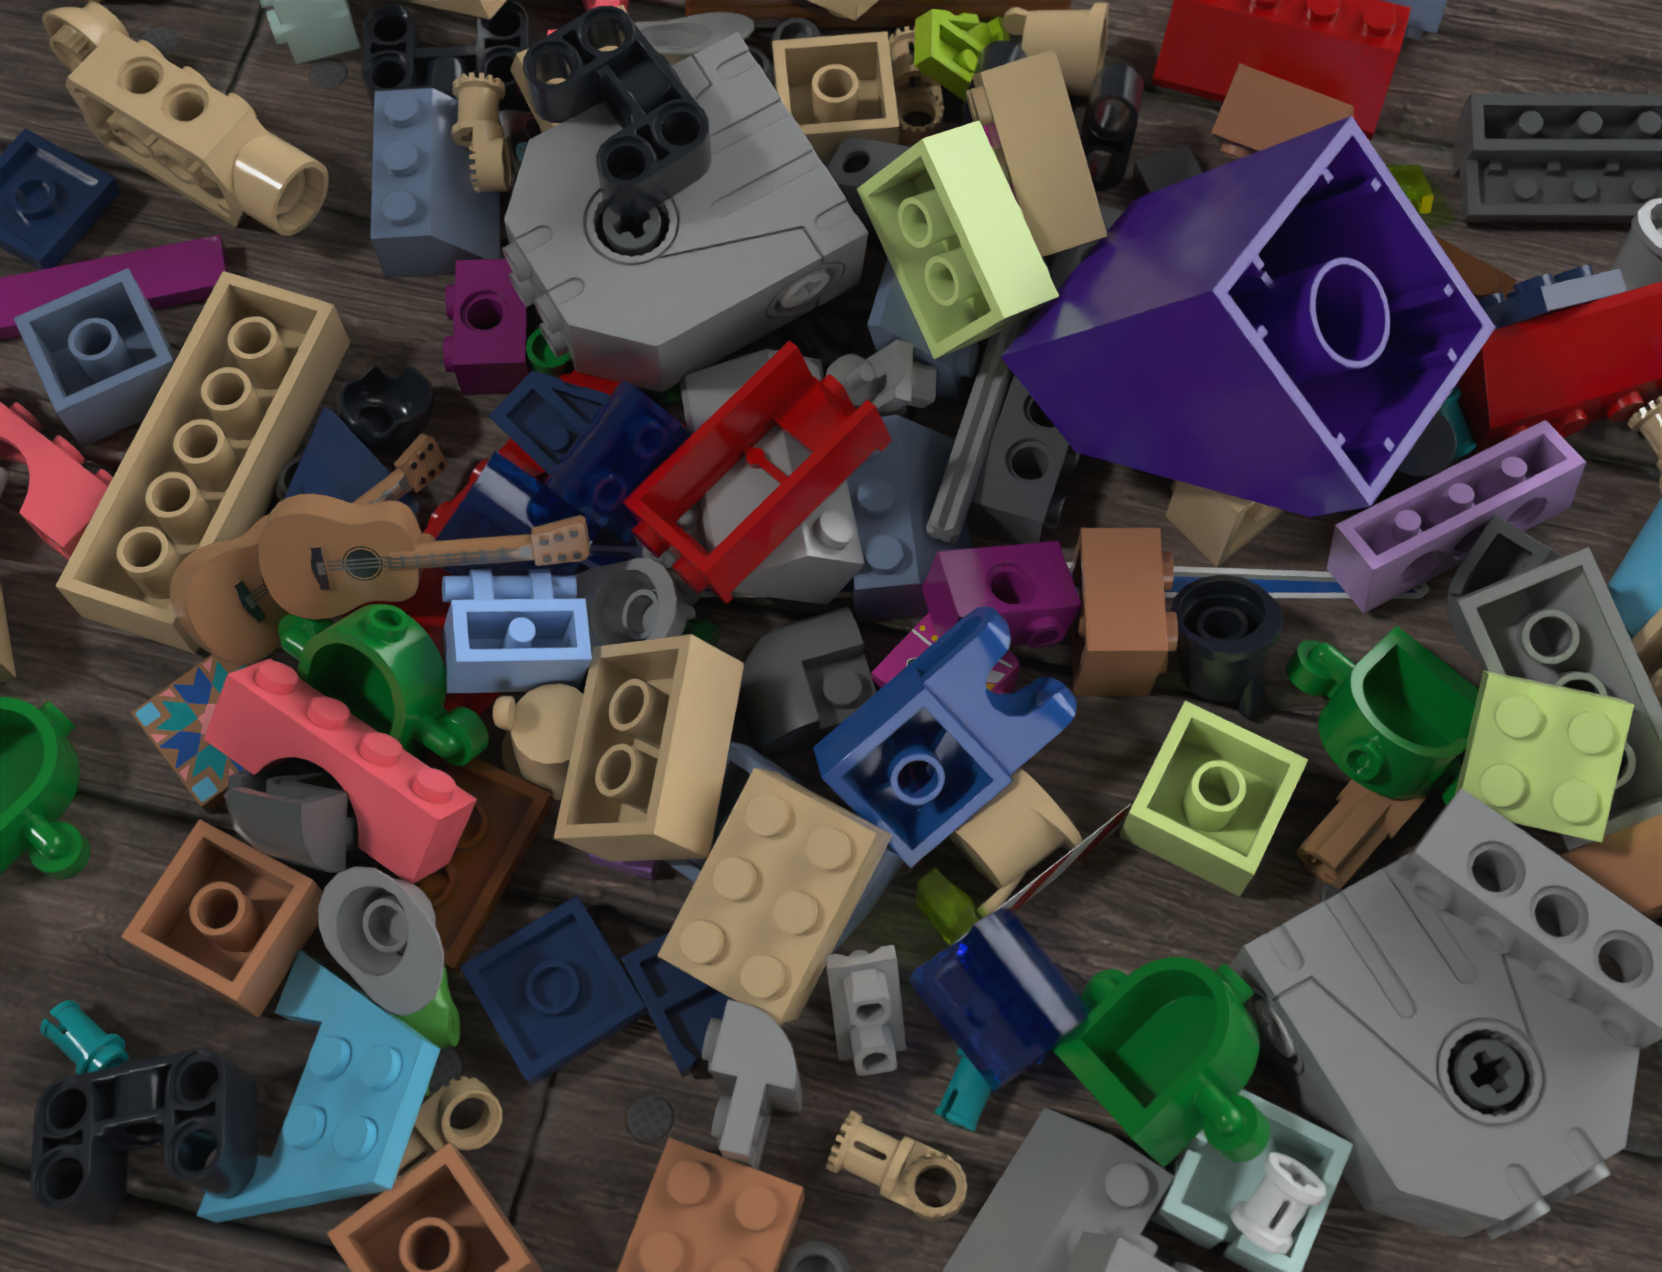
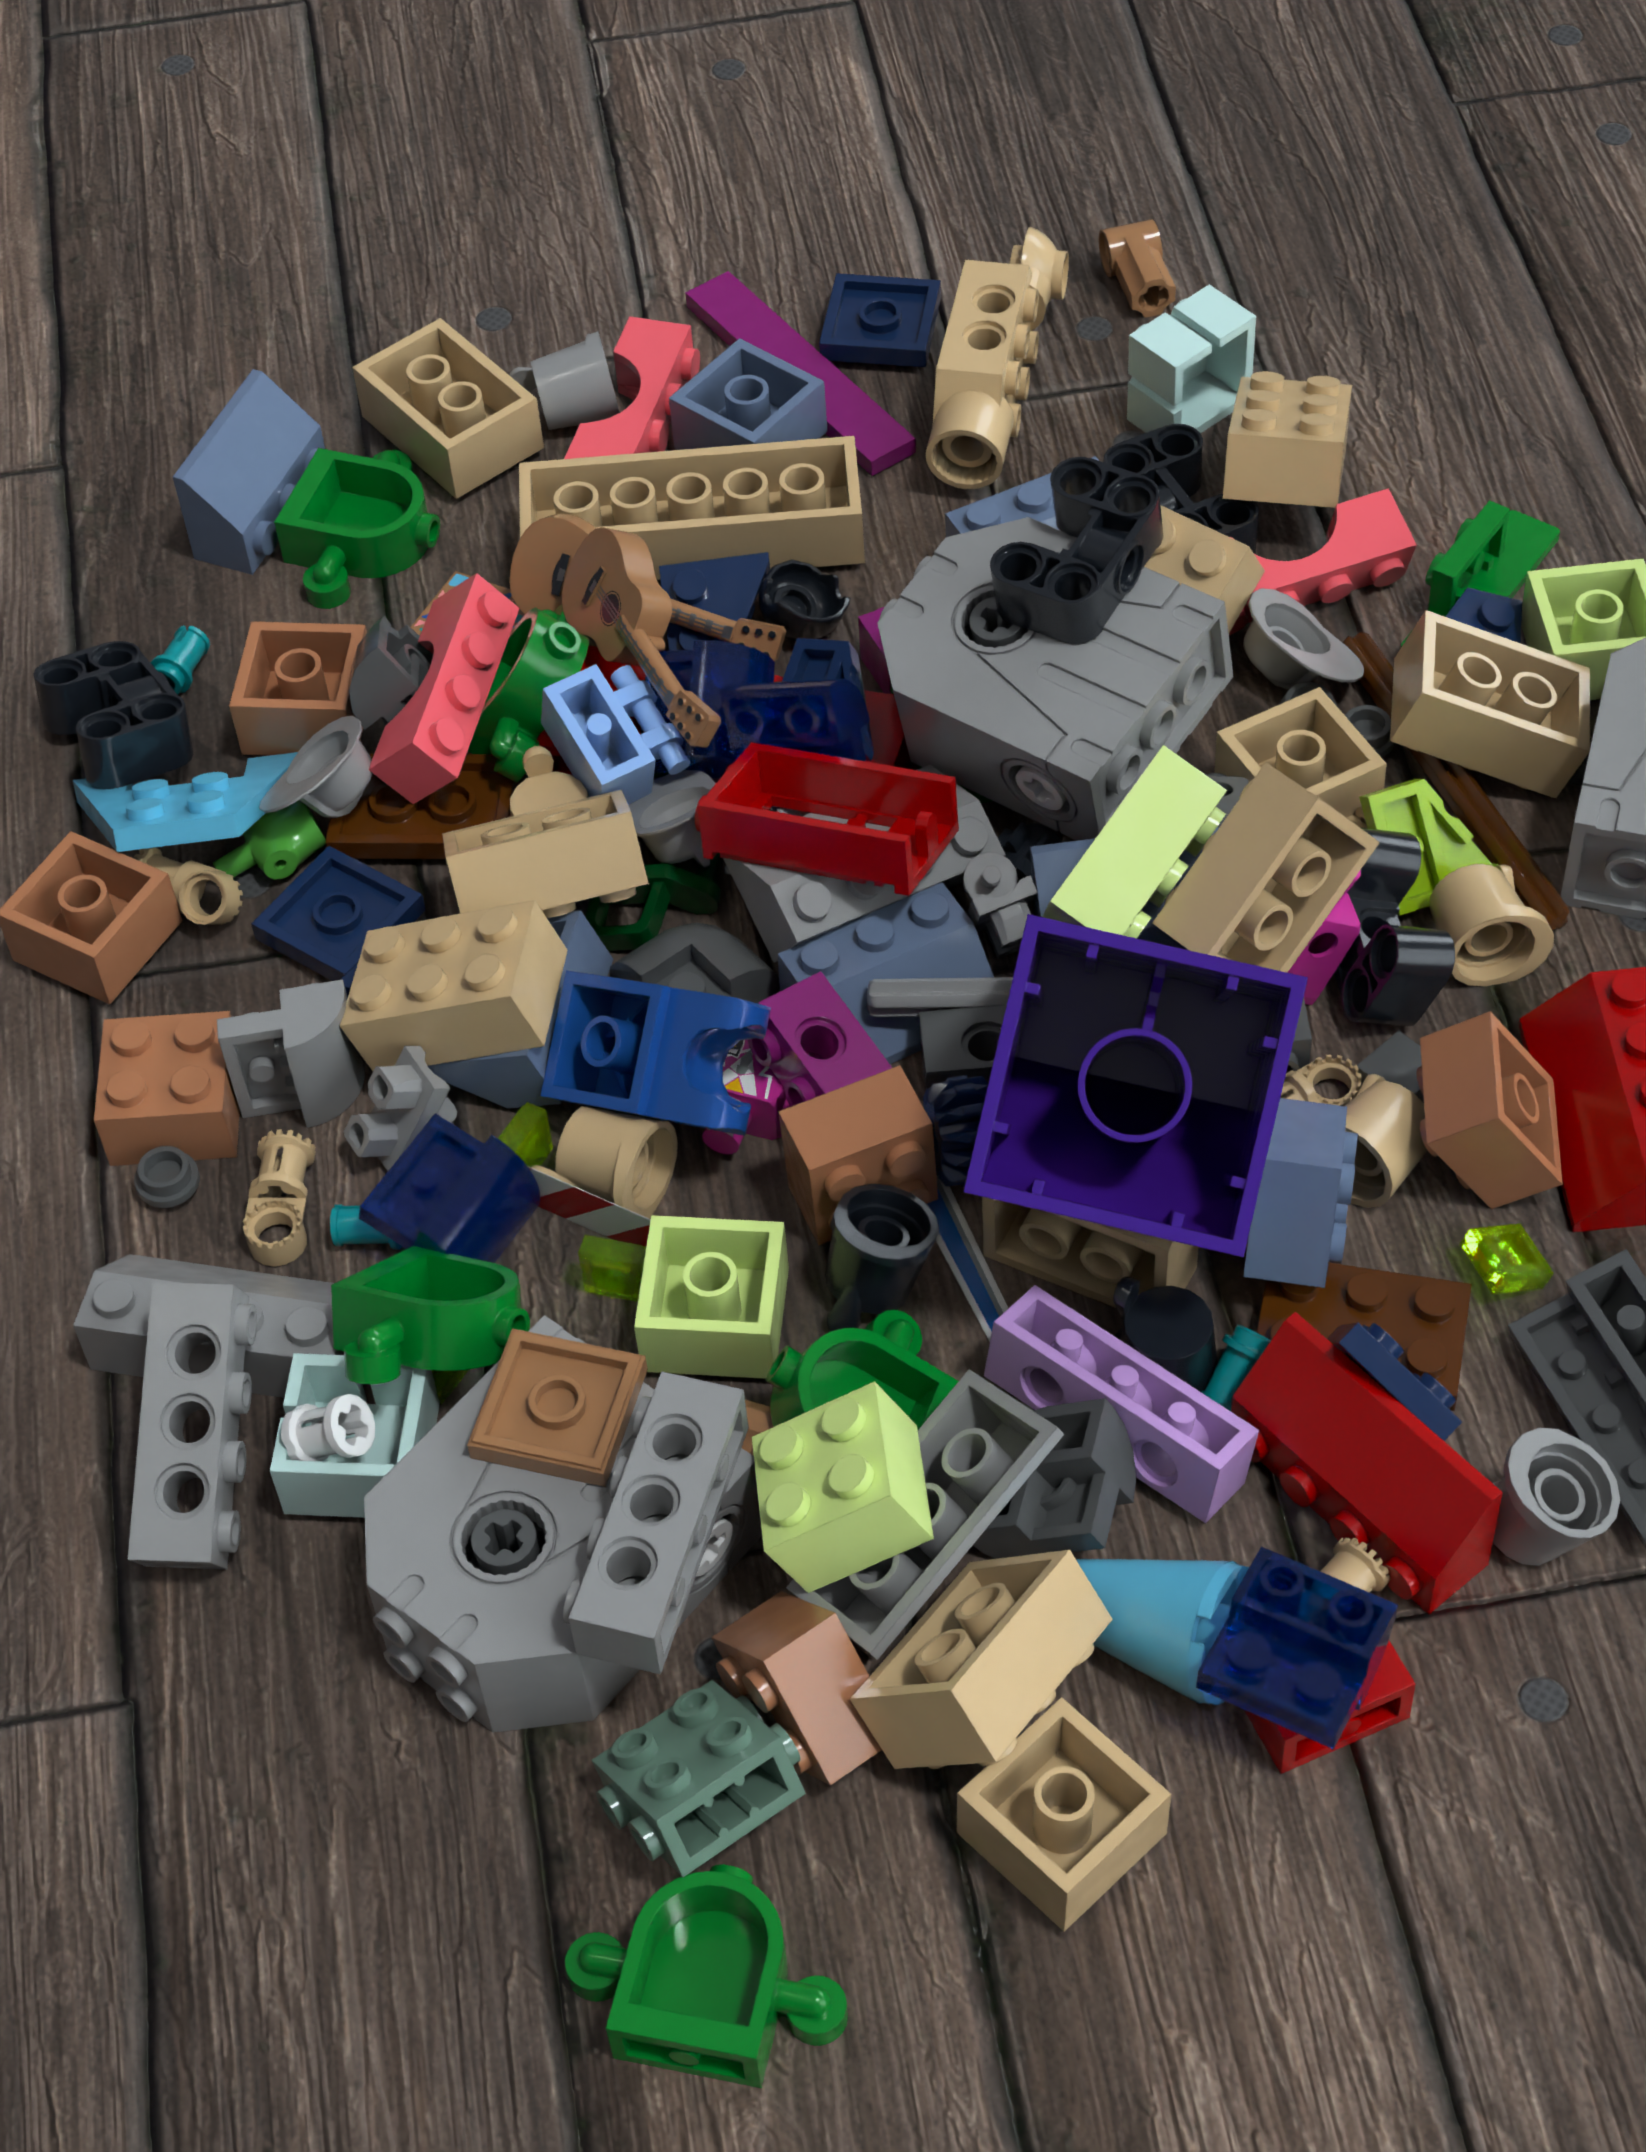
camera: 70 degrees right, 15 degrees down
(1112, 504) = (955, 1117): none -> dark blue gear
(1127, 873) = (611, 1267): none -> clear neon green tile
(1369, 969) = (558, 1407): none -> medium nougat tile

